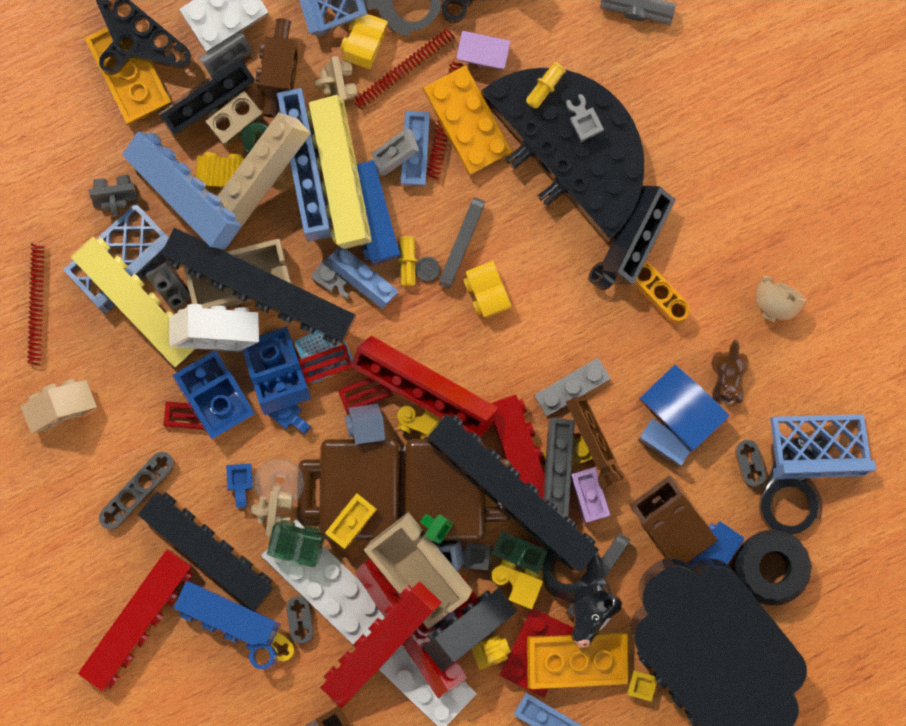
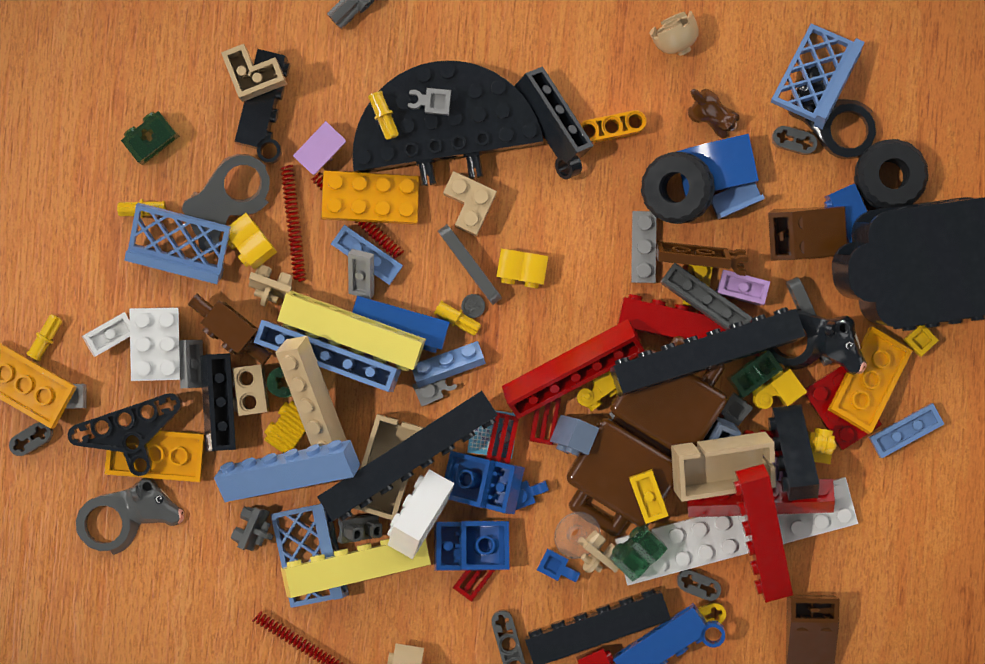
camera: 55 degrees left, 5 degrees up
(72, 82) = (136, 505): none -> dark grey animal
(437, 527) = (698, 429): green tile -> none
(521, 214) = (476, 200): none -> tan brick
(637, 361) = (655, 187): none -> black tyre

